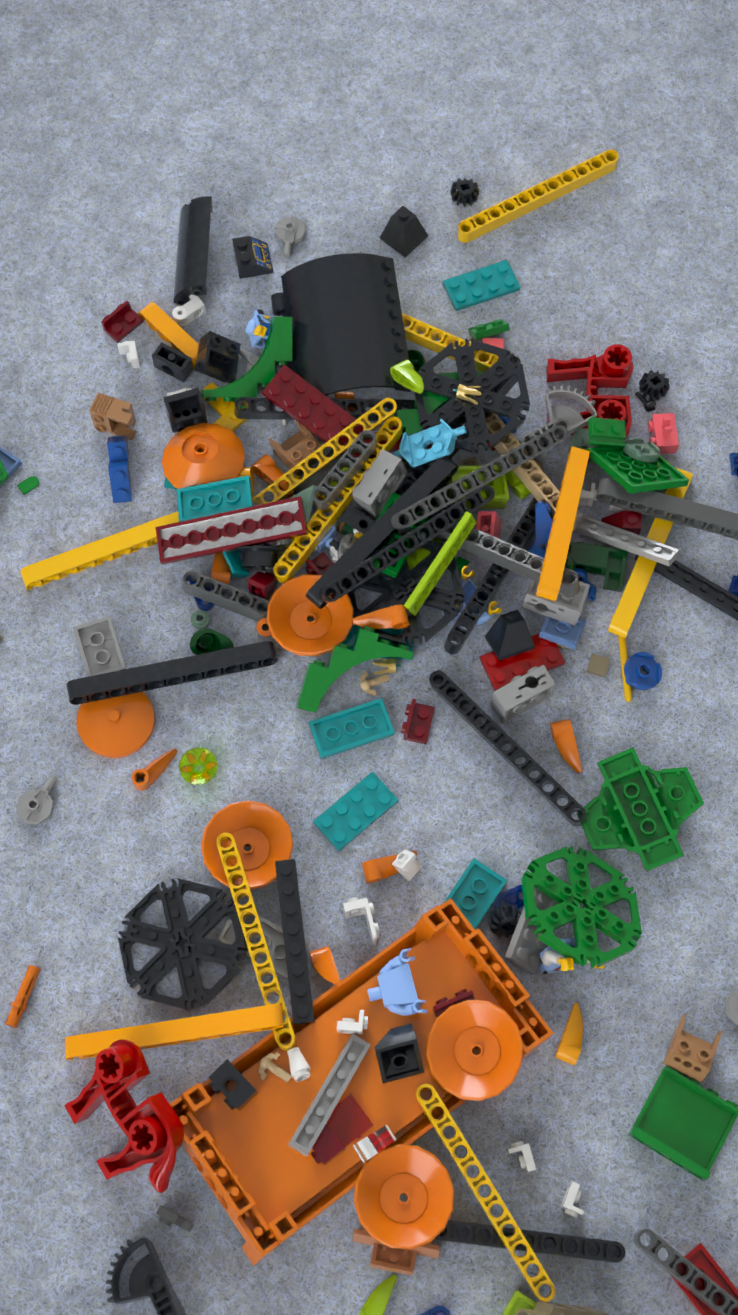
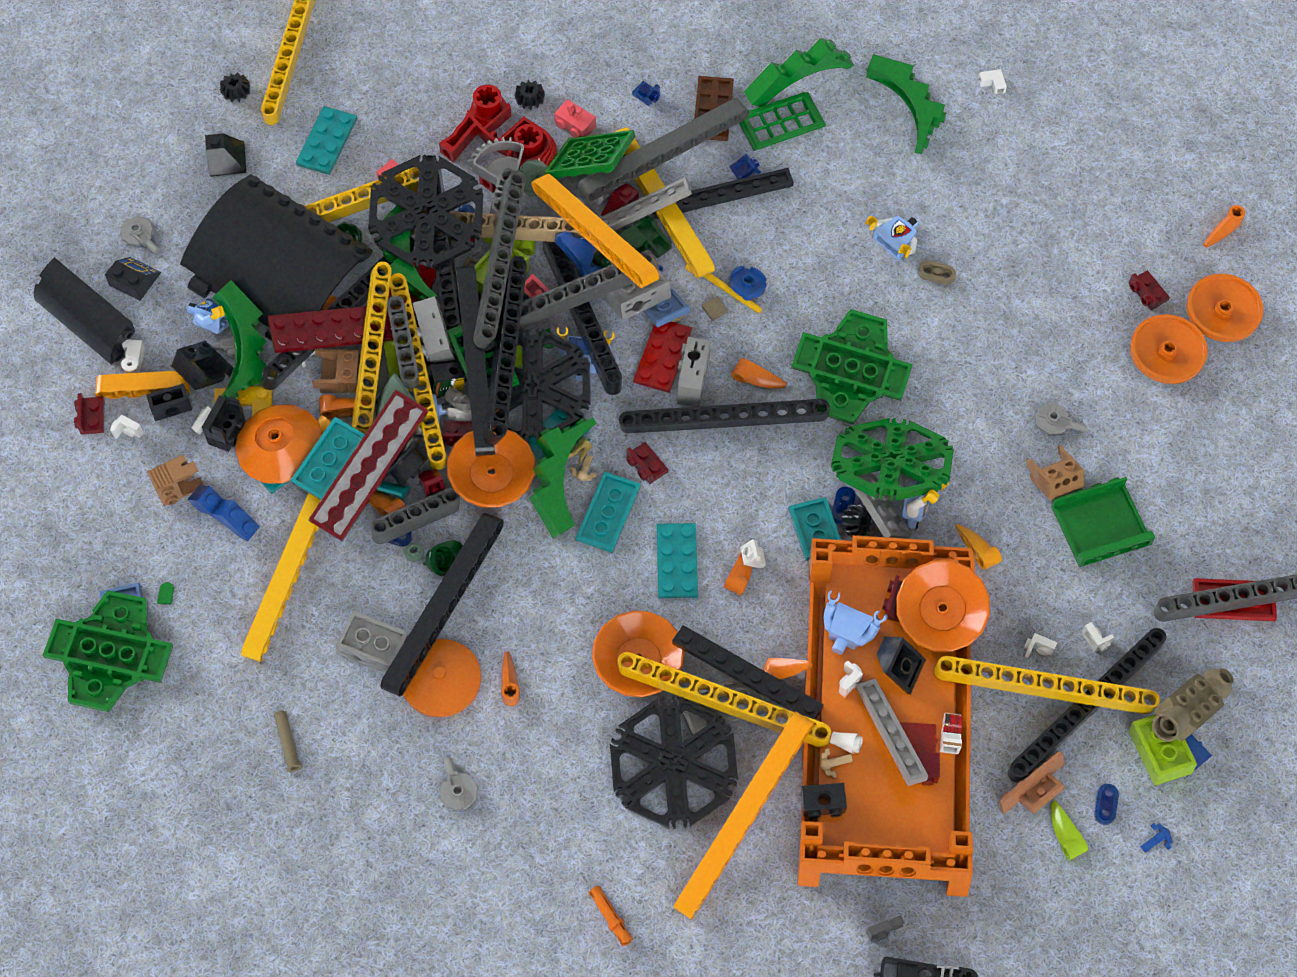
camera: 50 degrees left, 5 degrees down
(152, 1126) = (809, 881): red animal -> none
(196, 757) = (538, 635): clear neon green dish -> none
(261, 622) = (463, 513): orange plate -> none
(357, 907) = (771, 610): white bracket -> none
(389, 617) = (548, 413): orange piece -> none
(406, 376) = (362, 242): lime piece -> none
(407, 1172) = (1009, 723): orange dish -> none
(414, 446) = (439, 256): medium azure plate -> none
(440, 563) = (543, 340): lime tile -> none
(463, 390) = (420, 210): pearl gold piece -> none
(488, 329) = (371, 163): green plate -> none
(509, 636) = (638, 345): black slope -> none
(606, 432) = (543, 151): green plate -> none
(641, 451) = (578, 142): sand green tile -> none
(648, 405) = (541, 112): black hand -> none

